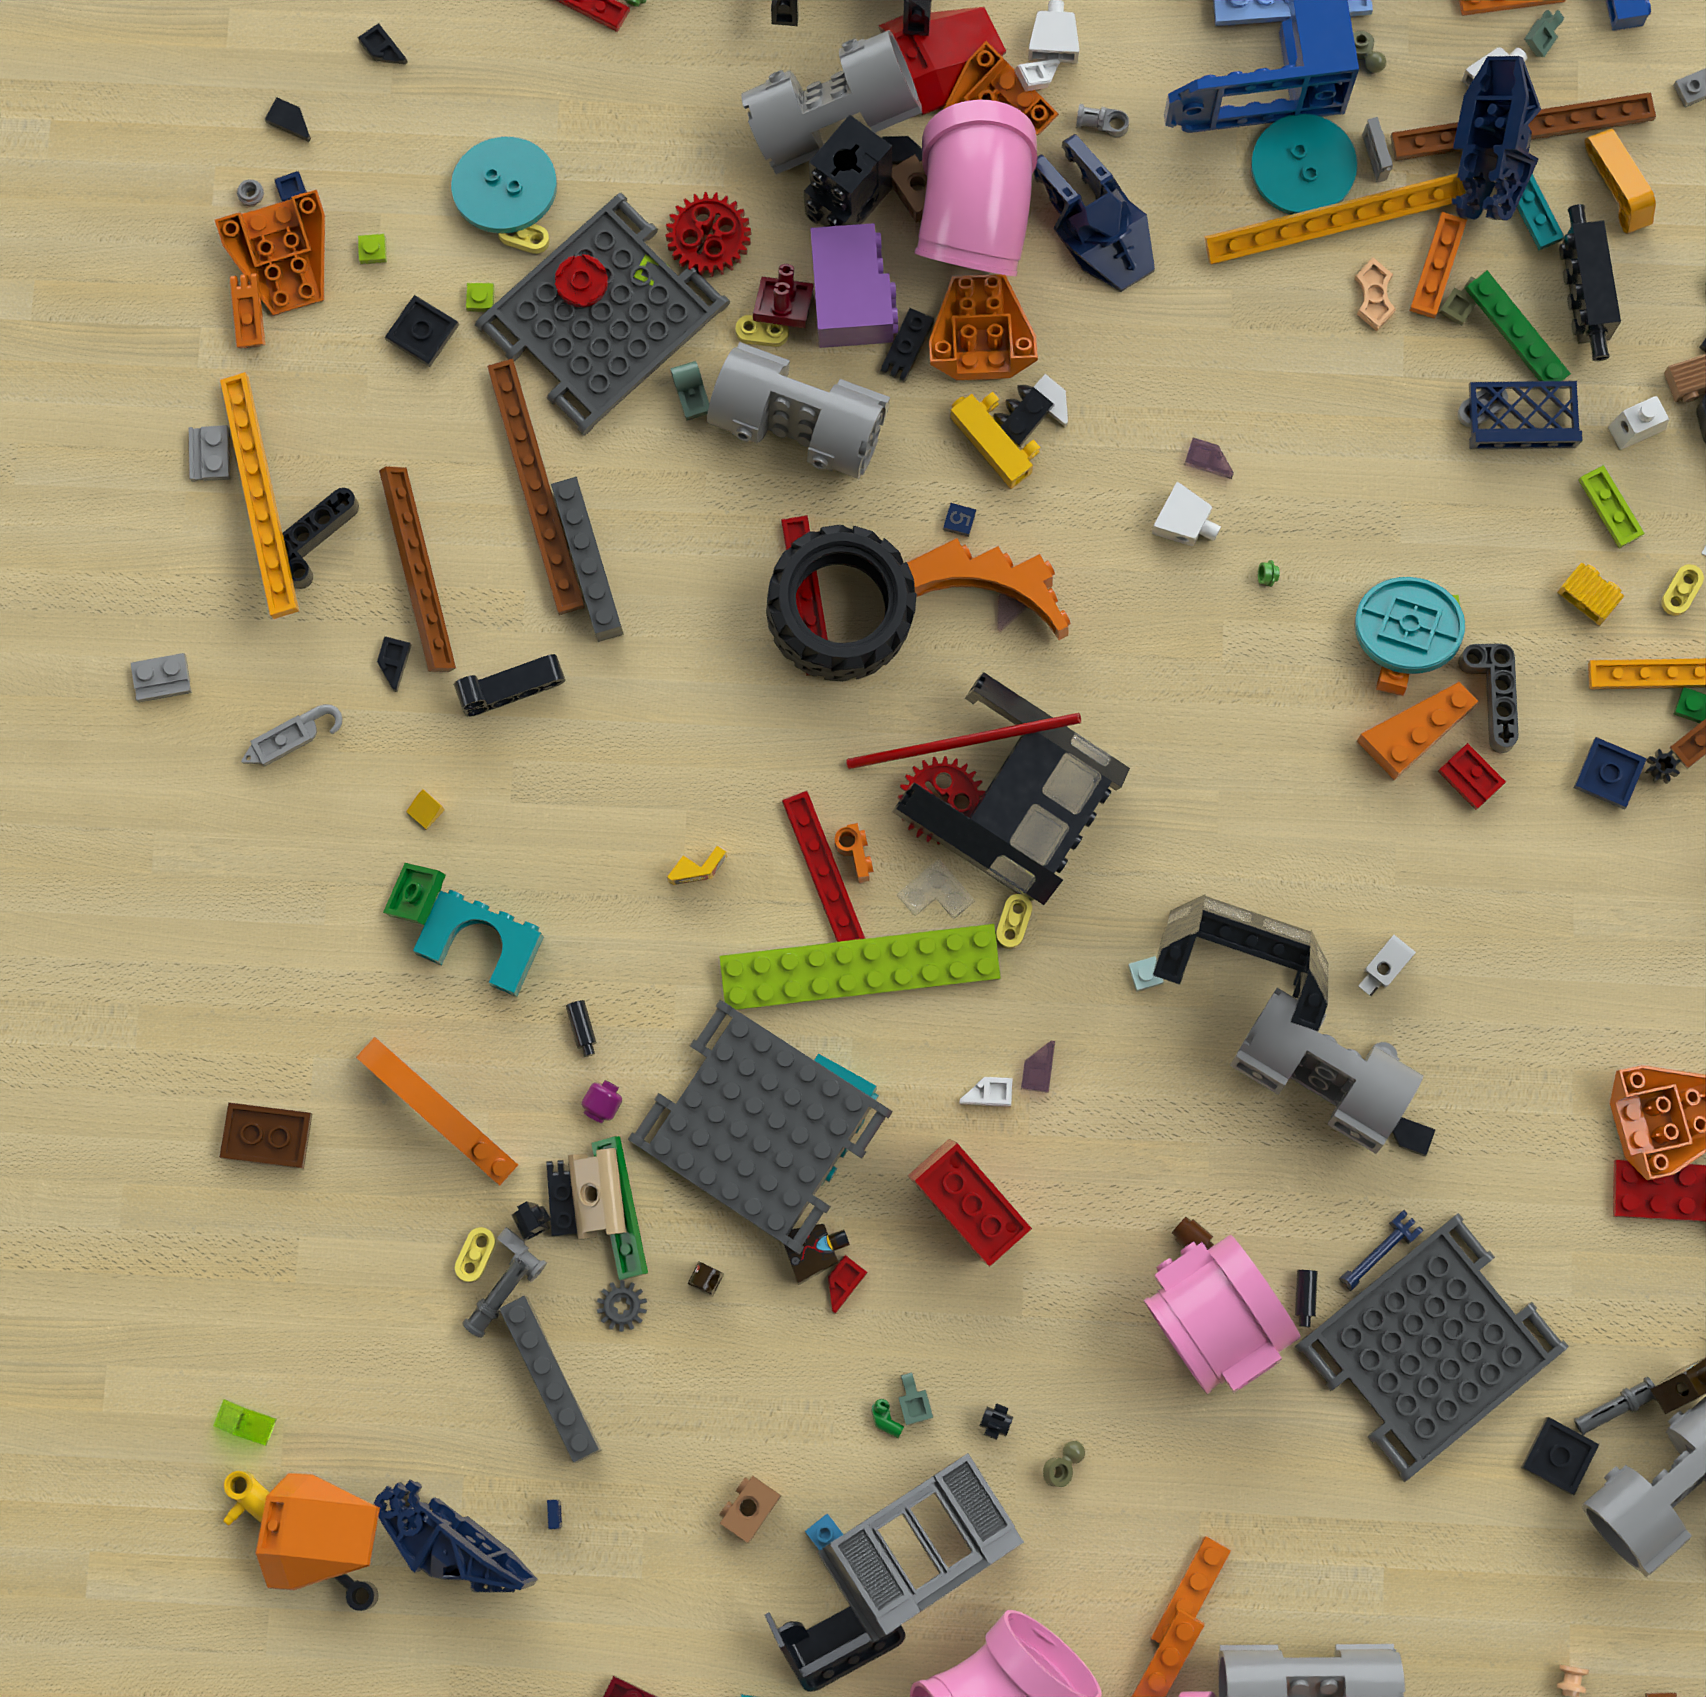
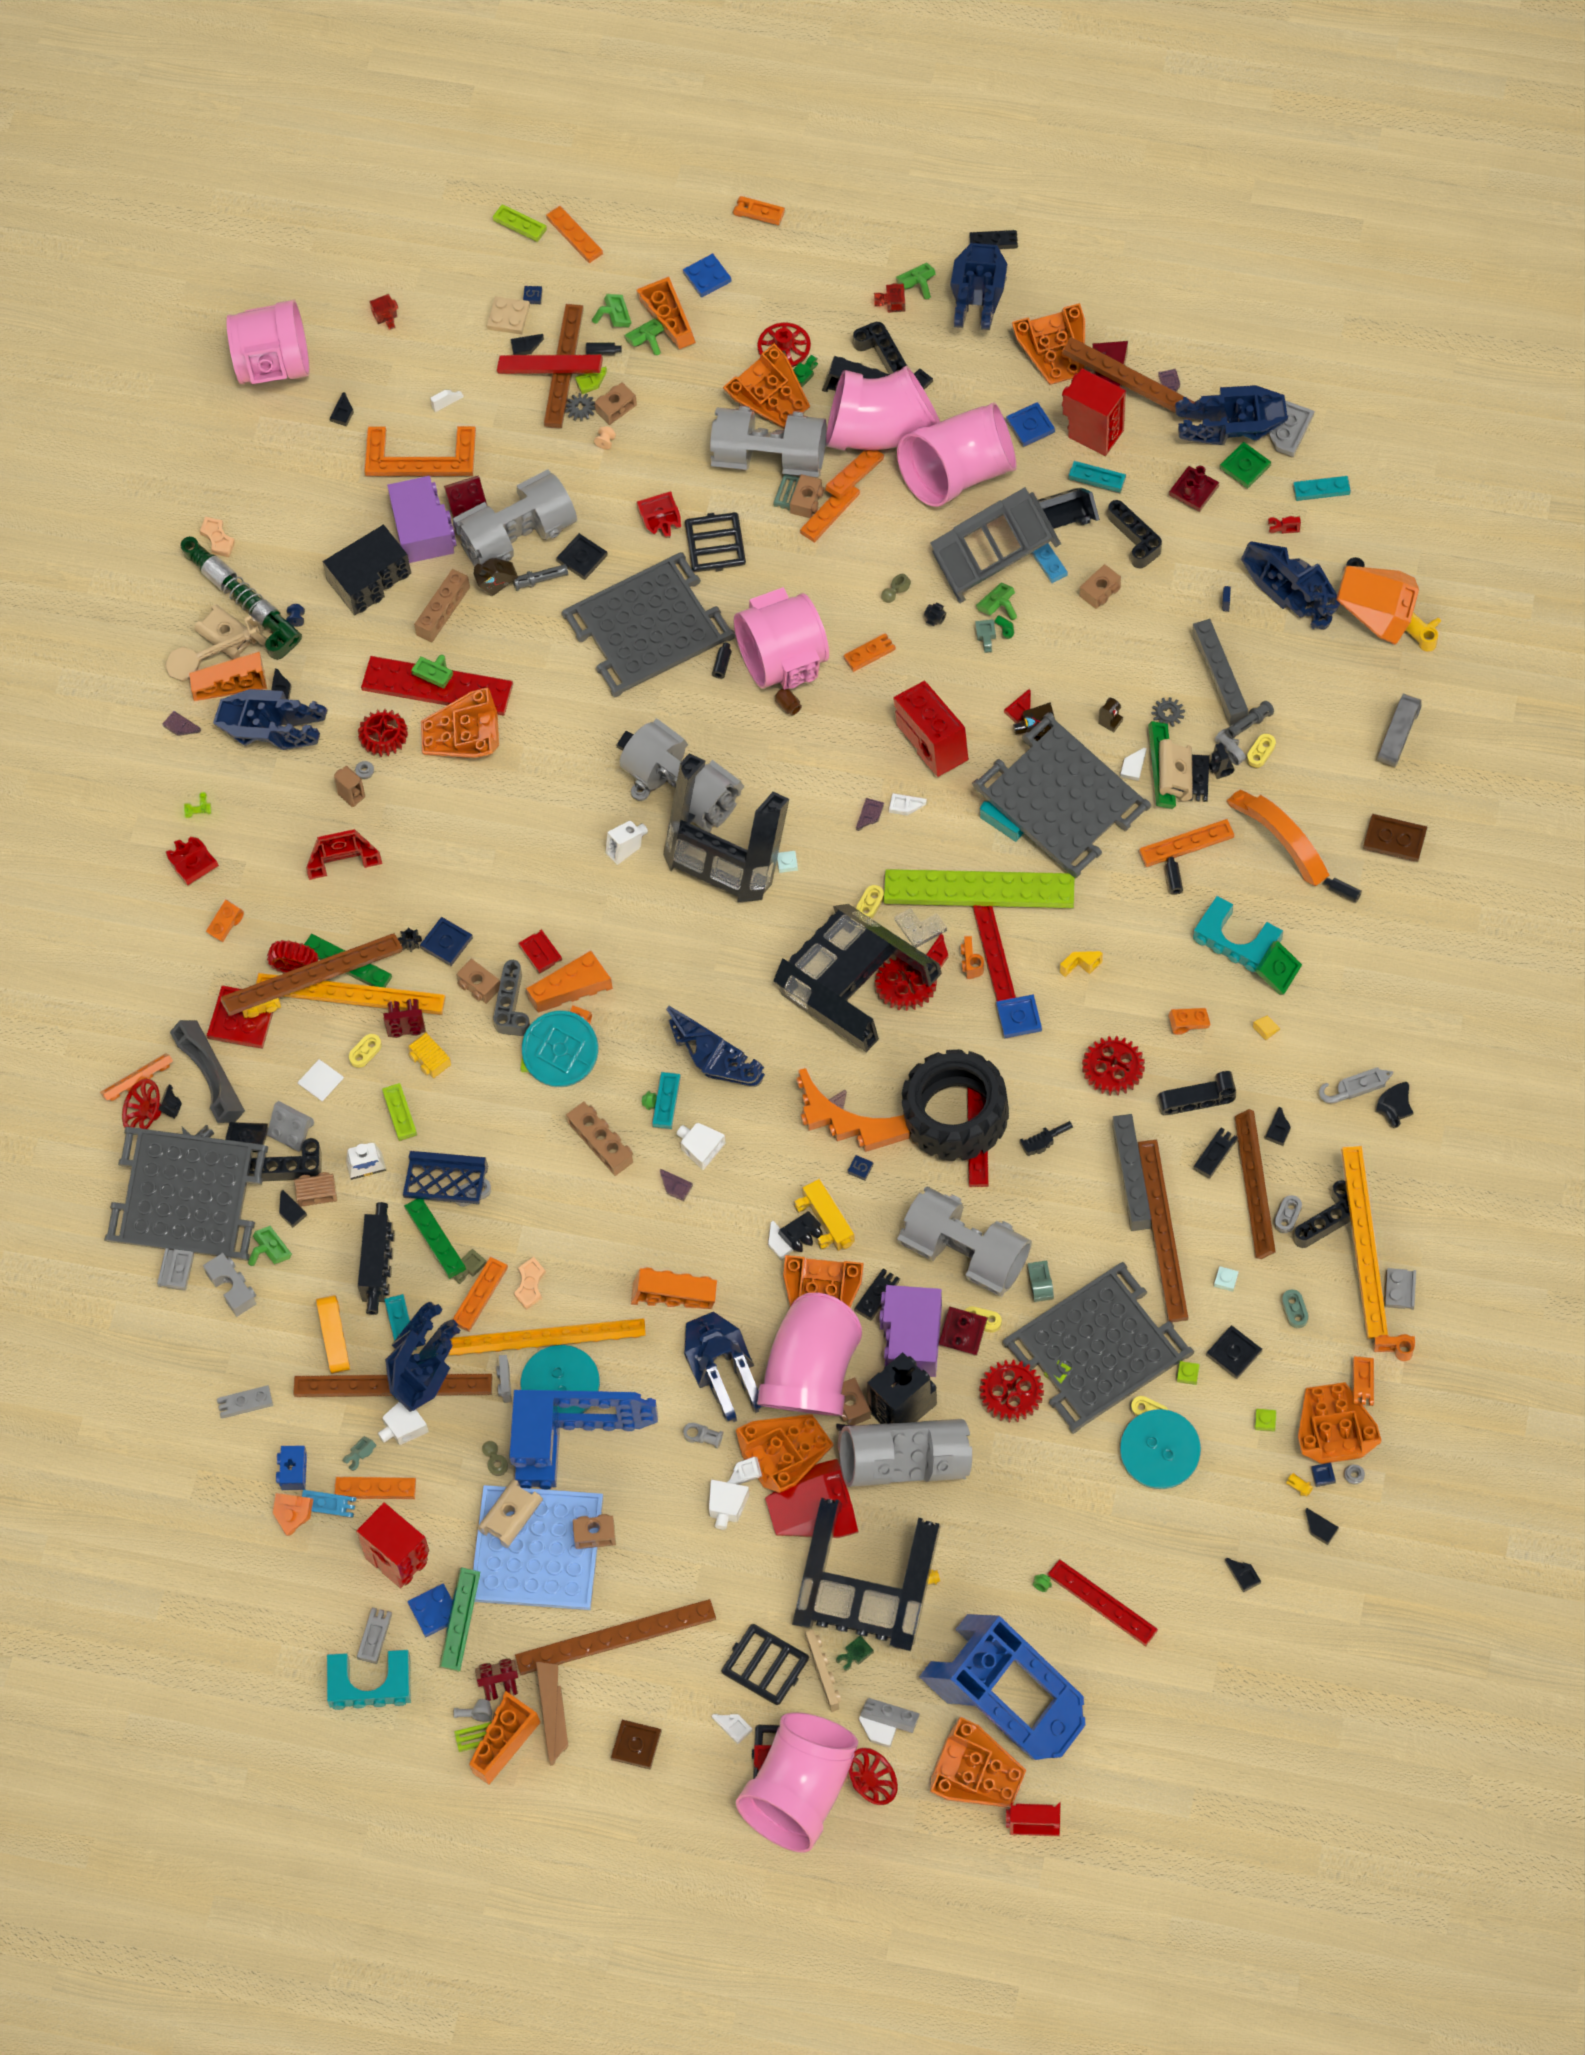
camera: 170 degrees left, 15 degrees down
(161, 677) = (1447, 1139): light grey plate -> none
(209, 370) = (1385, 1343): none -> orange plate
(236, 718) = (1395, 1104): none -> black arm
(244, 1422) = (1424, 674): clear neon green slope -> none
(259, 1343) = (1399, 729): none -> flat silver beam
(318, 166) = (1299, 1484): none -> yellow pin
(334, 1040) = (1343, 889): none -> black cylinder
(348, 402) = (1295, 1310): none -> sand green plate
(368, 534) = (1288, 1215): none -> light grey plate
(443, 433) = (1226, 1279): none -> light aqua plate
(470, 1667) = (1287, 525): none -> red plate
(476, 607) = (1215, 1153): none -> black hinge
(534, 800) = (1185, 1019): none -> orange plate
(568, 1083) = (1186, 843): none -> orange plate
(581, 280) = (1110, 1365): red tile -> none
(602, 1101) = (1165, 827): magenta head -> none
(638, 692) = (1119, 1050): none -> red gear
(662, 1205) = (1133, 765): none -> white tile
(713, 1619) = (1119, 515): none -> black beam
(715, 595) = (1043, 1140): none -> black piece
(774, 773) = (1019, 1016): none -> blue plate
(905, 856) = (939, 951): none -> red tile
(906, 1462) = (997, 597): none -> bright green plate
(965, 740) = (885, 1001): red piece -> none
(1087, 1345) = (869, 652): none -> orange hinge
(1180, 300) = (673, 1289): none -> orange wedge
(1193, 643) = (713, 1053): none -> dark blue connector
(1239, 1628) = (800, 504): none -> medium nougat brick
(1245, 576) = (666, 1100): none -> teal plate
(1253, 1615) = (783, 504): none -> sand green tile
(1321, 491) = (616, 1161): none -> medium nougat brick
(1331, 1535) = (692, 537): none -> black bar
(1401, 1231) = (650, 692): dark blue hinge -> none
(1455, 1546) = (660, 513): none -> red plate
(1556, 729) = (475, 972): none -> medium nougat brick
(1629, 629) = (404, 1022): none -> dark red plate

